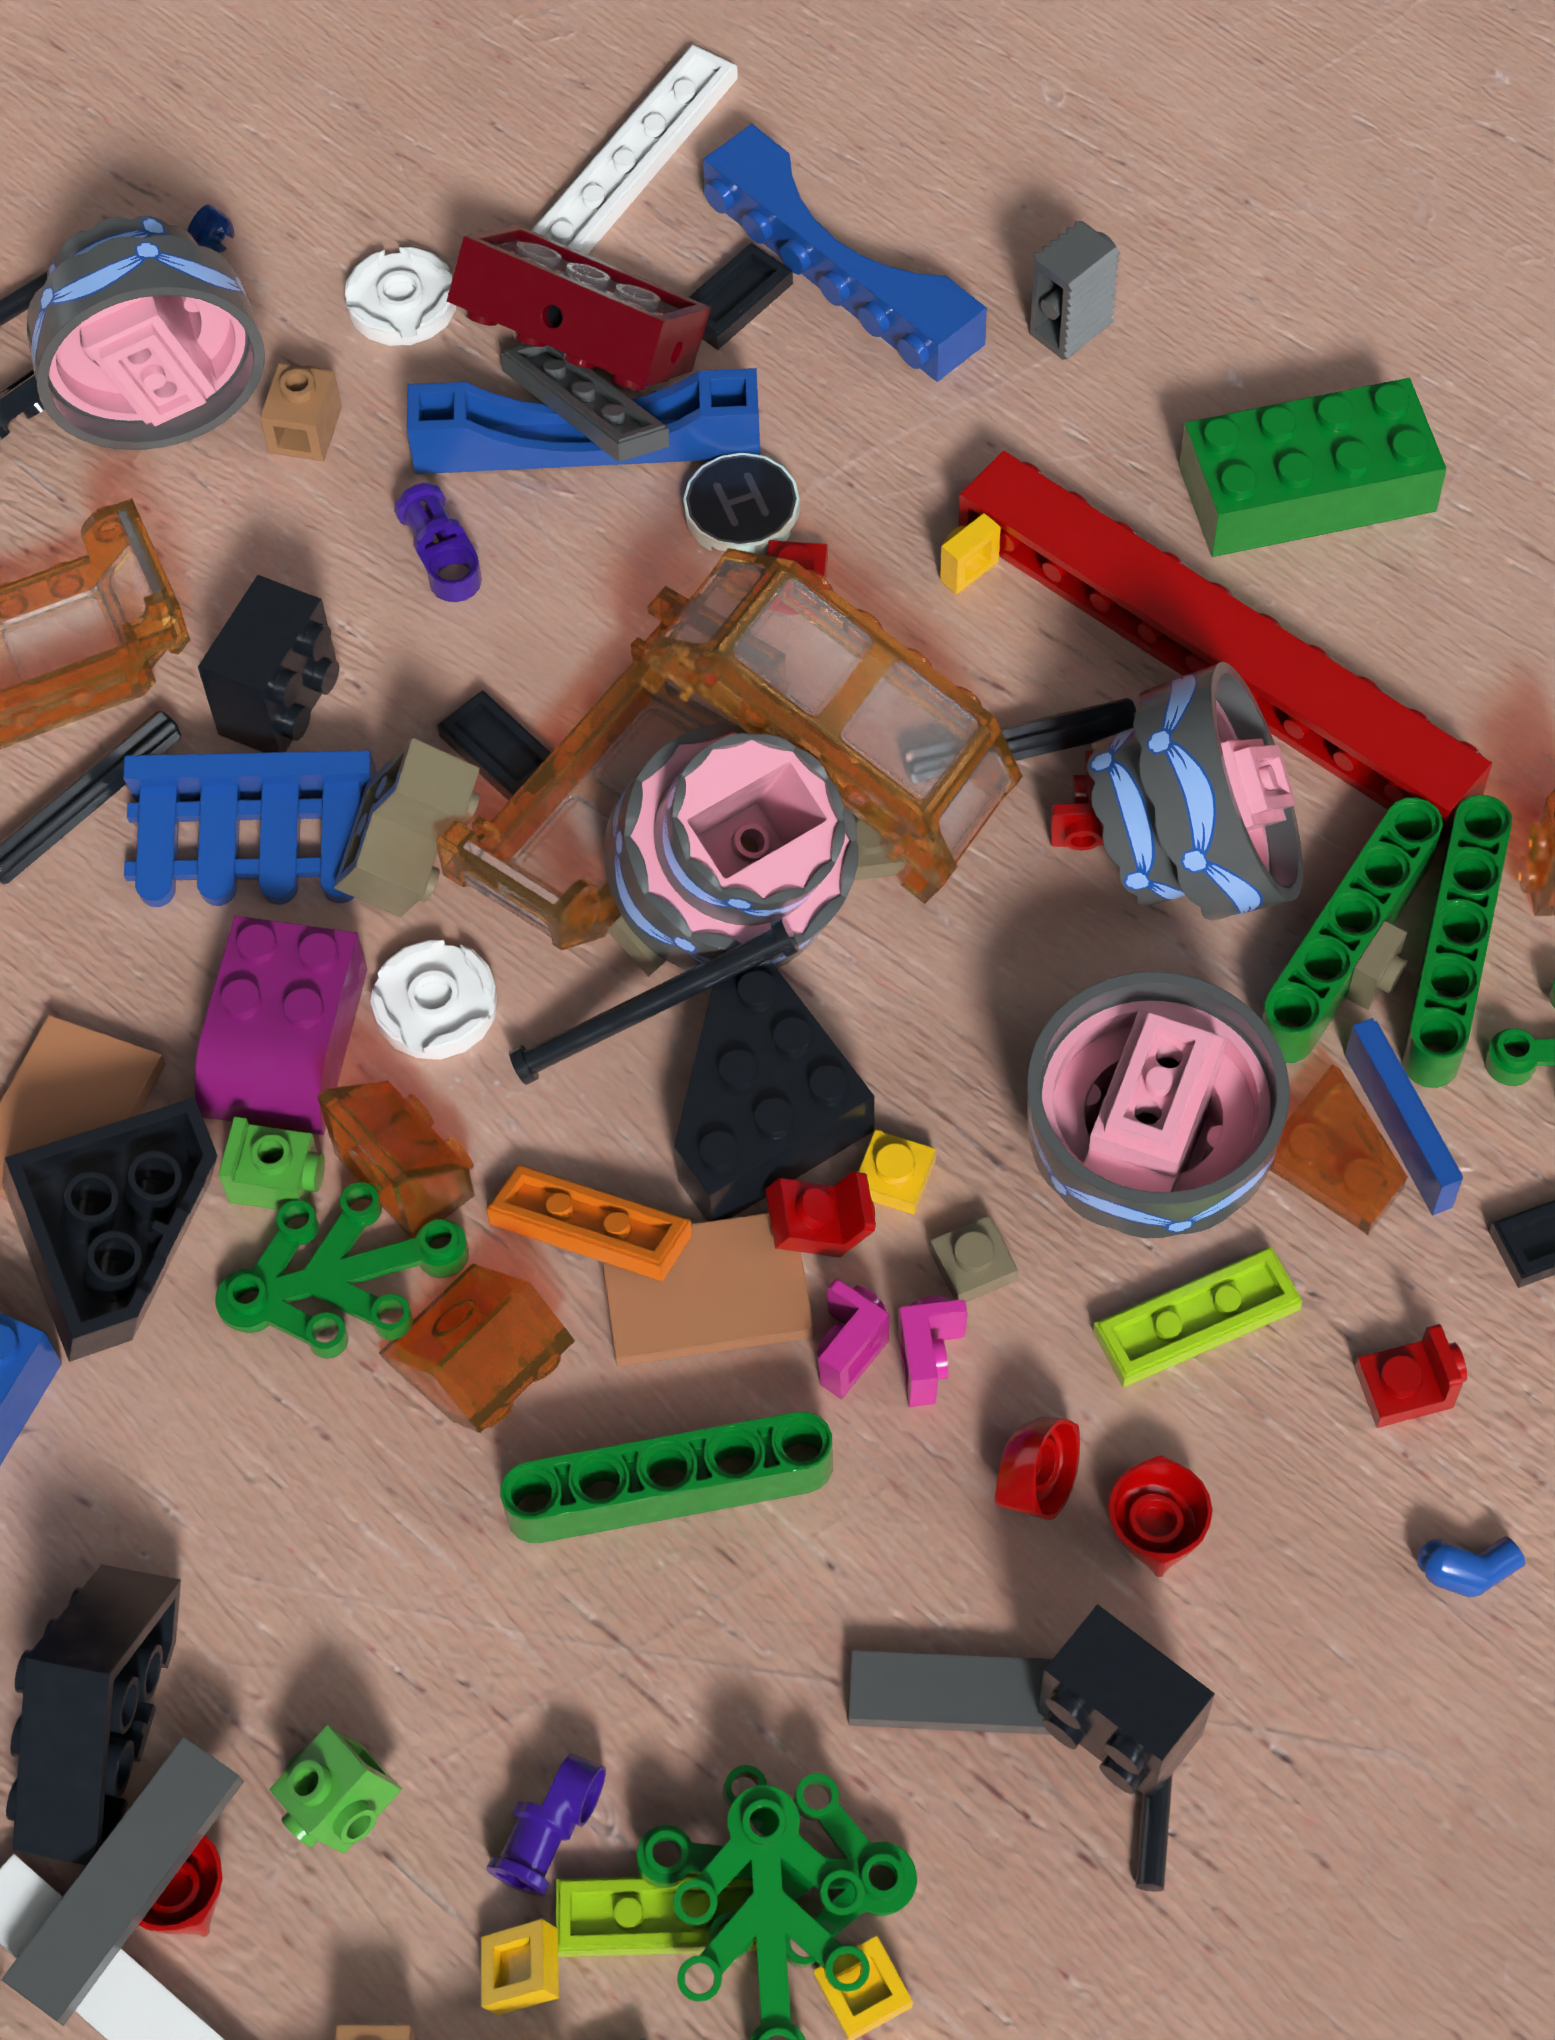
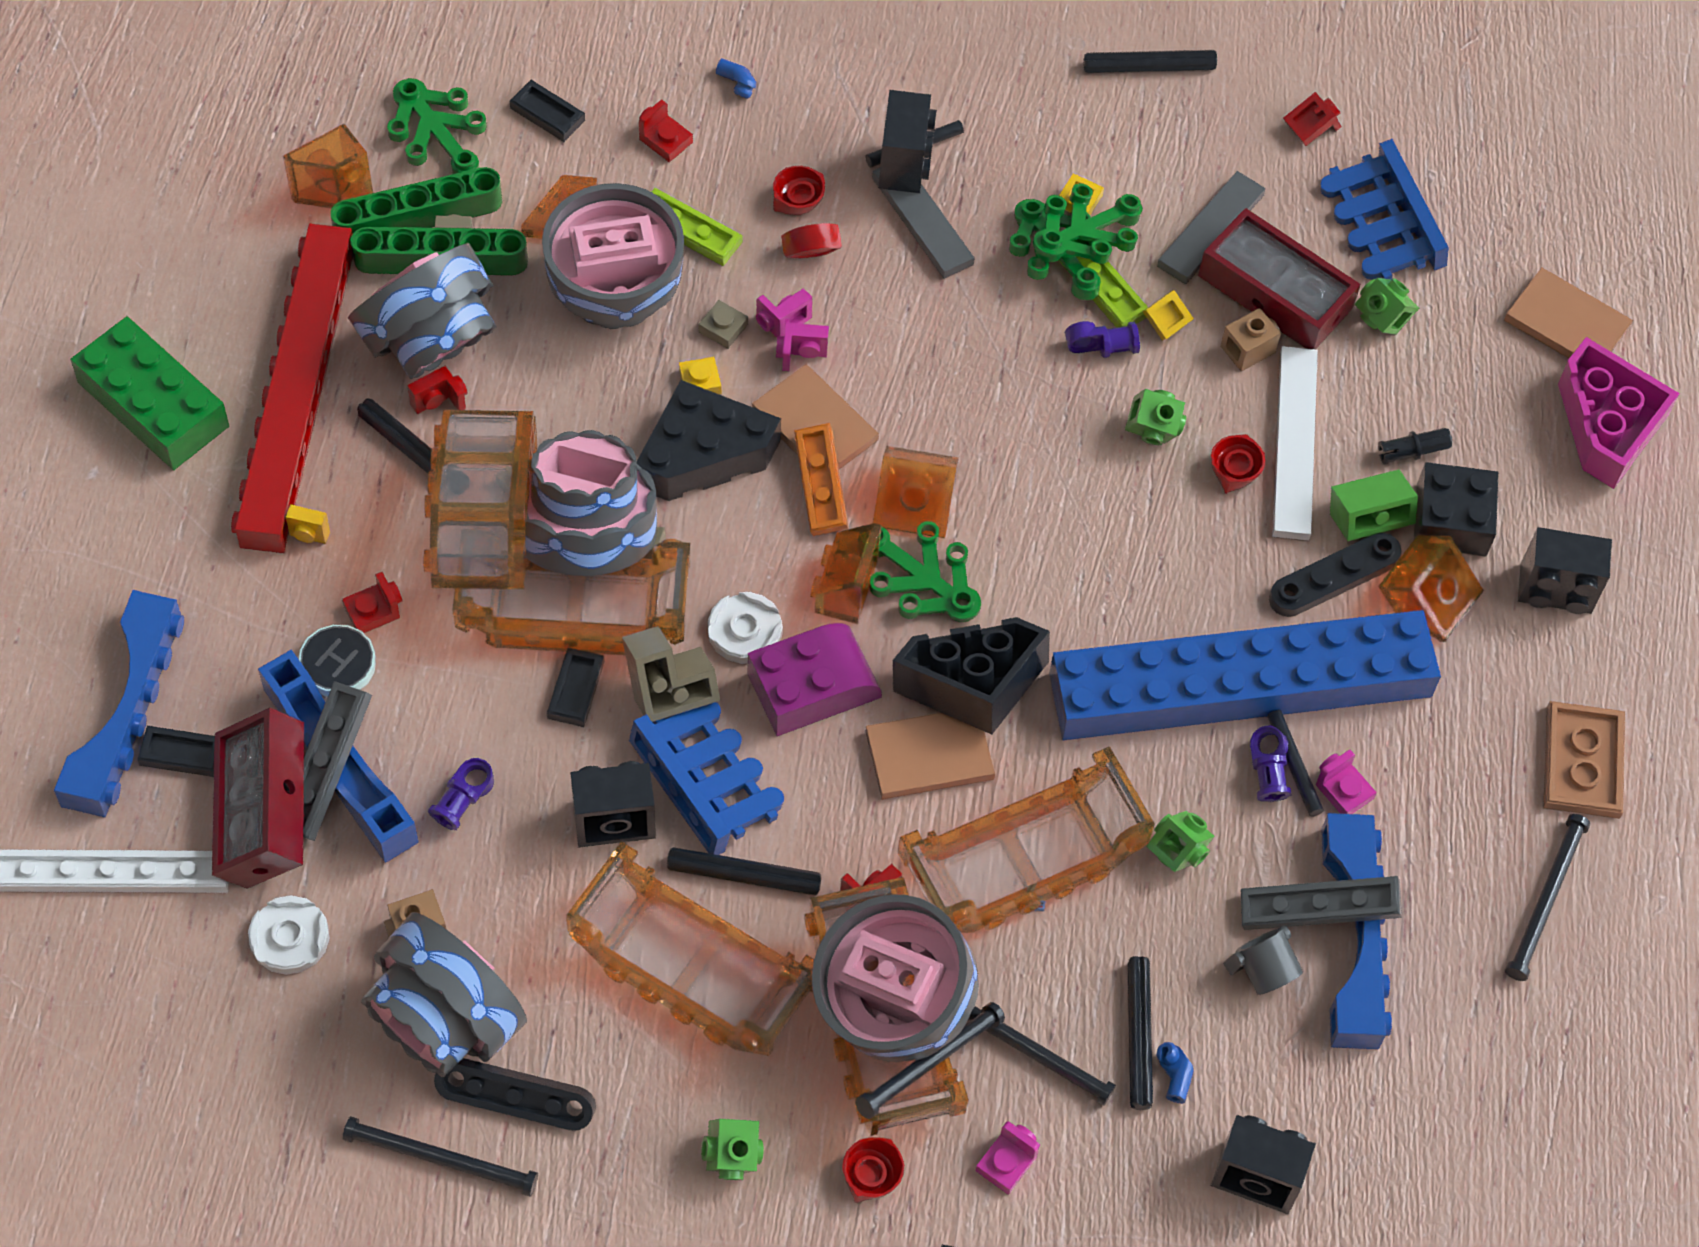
camera: 130 degrees left, 0 degrees up
(88, 1711) = (1195, 522): black brick -> none
(122, 1881) = (1254, 467): dark grey tile -> none
(210, 228) = (304, 1074): clear blue hinge -> none
(254, 1182) = (887, 641): bright green brick -> none
(636, 1463) = (925, 393): green beam -> none
(653, 1001) = (695, 506): black bar -> none
(821, 1216) = (746, 385): red bracket -> none
(1073, 289) = (93, 552): dark grey brick -> none
(1403, 1116) = (532, 186): blue tile -> none

